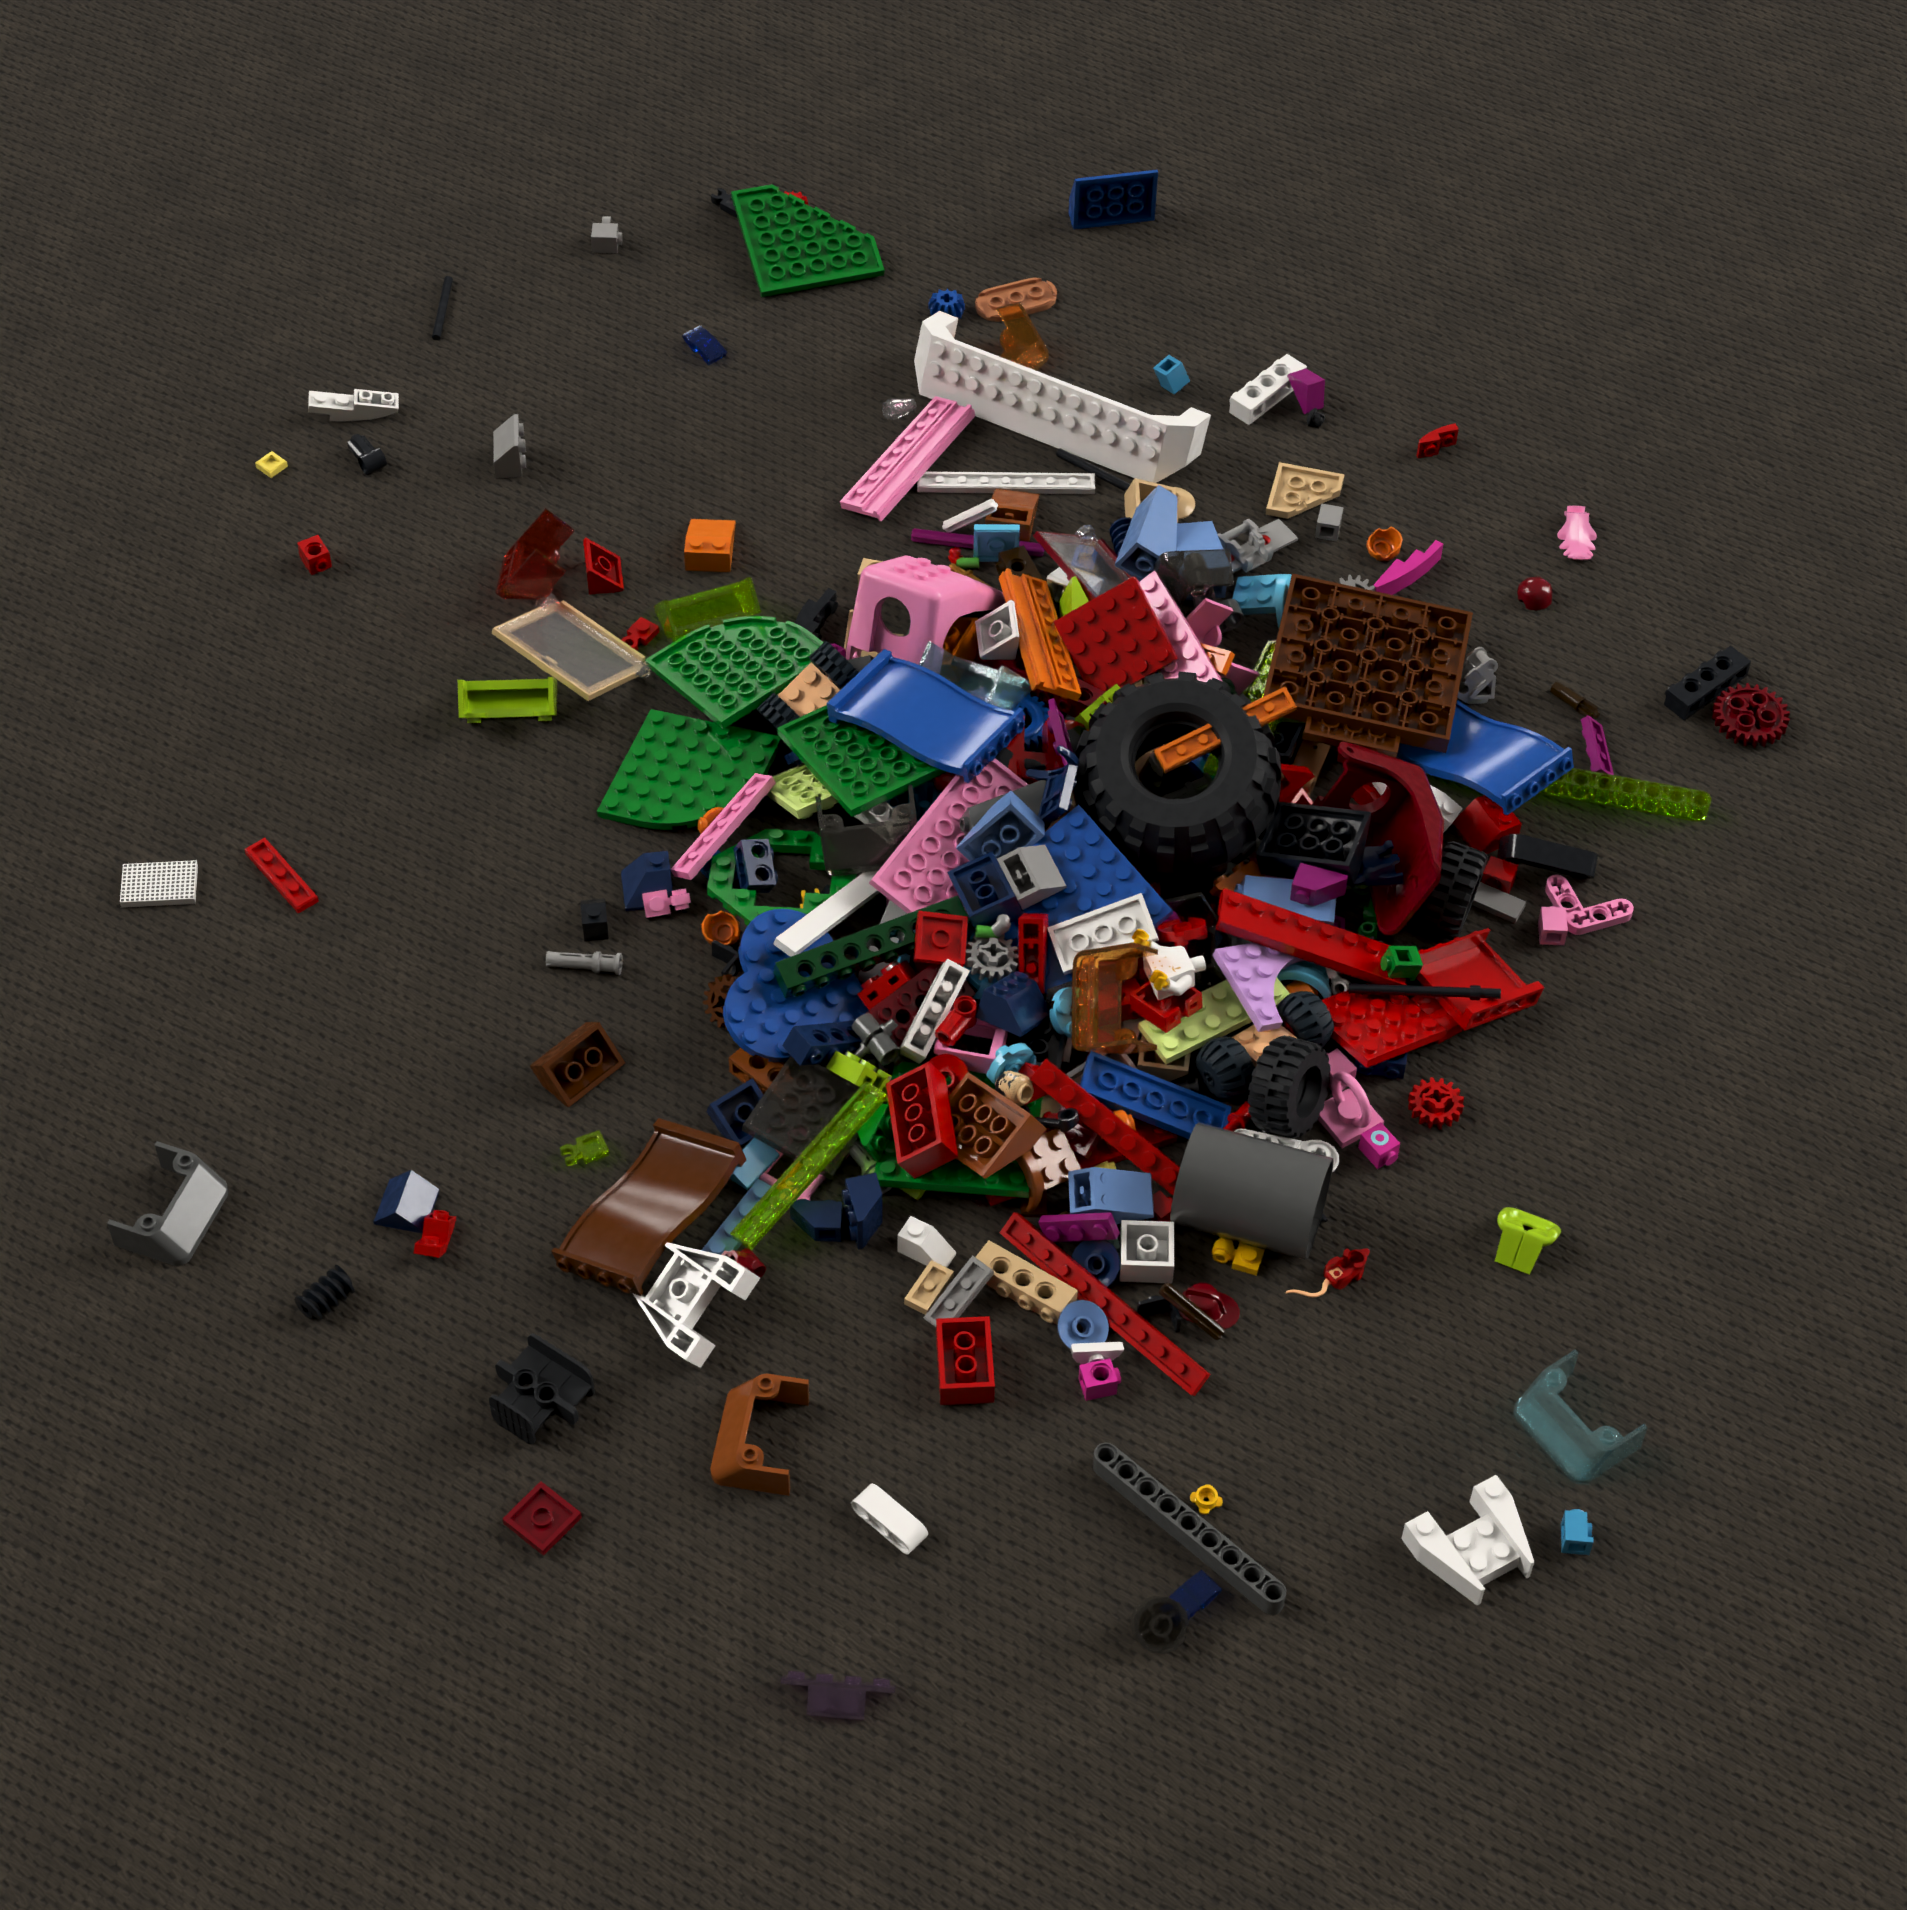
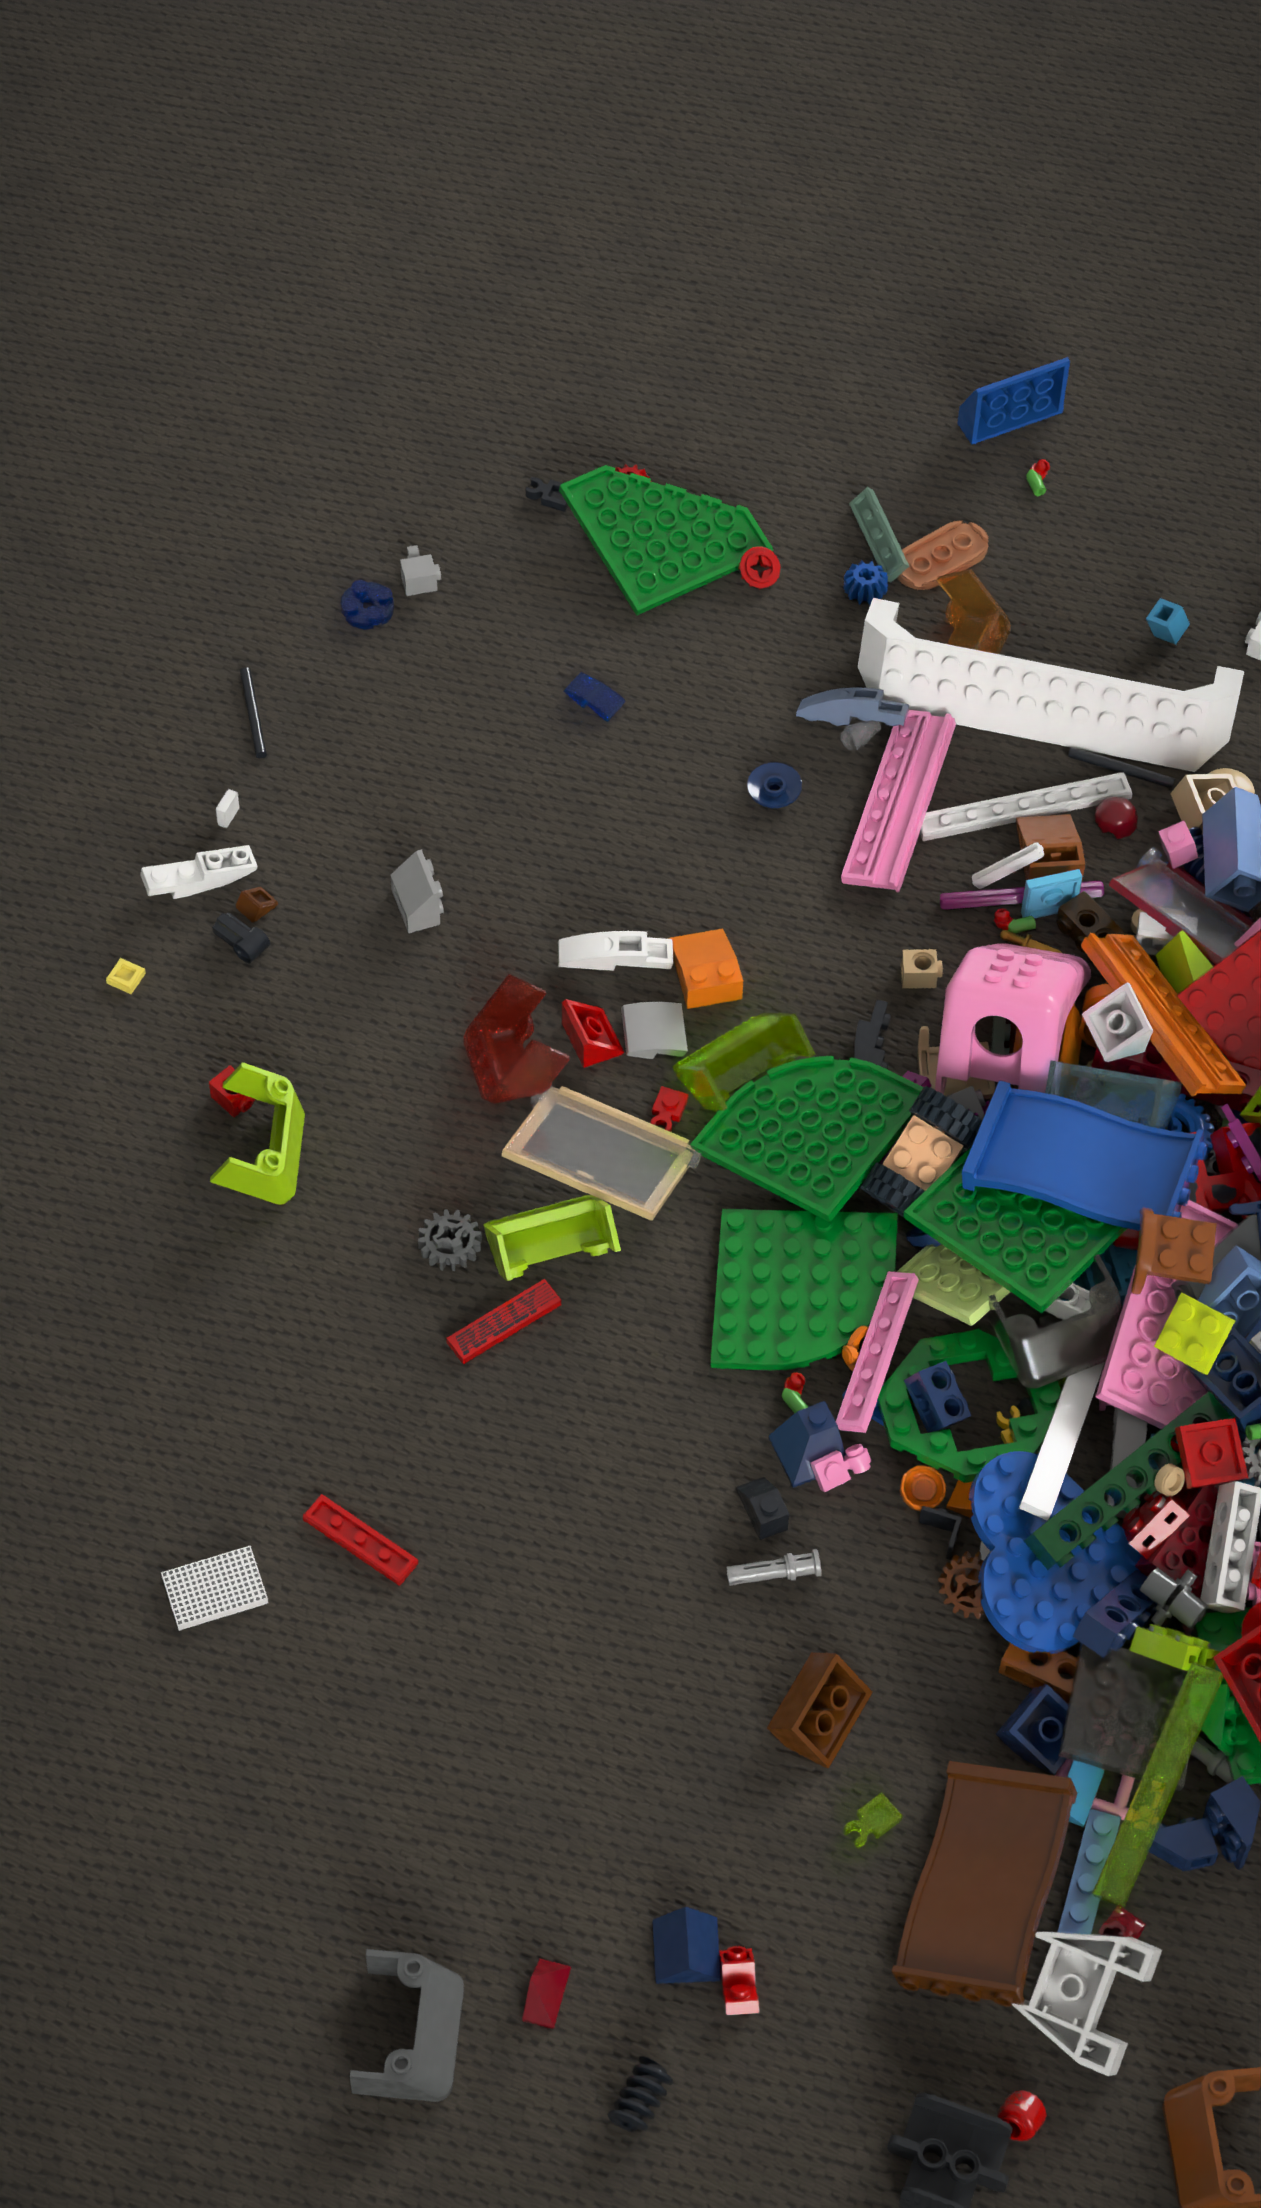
camera: 15 degrees left, 5 degrees up
(285, 1209) = (546, 1993): none -> dark red slope
(318, 612) = (275, 1168): none -> lime windscreen
(388, 434) = (255, 903): none -> reddish brown slope
(393, 366) = (227, 808): none -> white tile
(433, 687) = (448, 1242): none -> dark grey gear
(452, 751) = (503, 1321): none -> red tile
(556, 243) = (367, 592): none -> clear blue plate
(610, 1374) = (1023, 2113): none -> red head
(639, 514) = (615, 948): none -> white slope
(651, 577) = (654, 1029): none -> light grey slope
(653, 842) = (792, 1392): none -> arm
(815, 429) = (774, 776): none -> dark blue dish
(876, 276) = (767, 559): none -> red gear
(893, 384) = (843, 704): none -> sand blue slope
(901, 951) = (1169, 1480): none -> tan tile
(959, 850) = (1194, 1333): none -> neon yellow plate
(962, 784) = (1173, 1249): none -> dark orange piece
(971, 275) = (879, 534): none -> sand green tile
(1075, 503) = (1116, 816): none -> dark red hair
(1107, 524) = (1178, 844): none -> bright pink brick
(1113, 258) = (1036, 475): none -> bright green arm

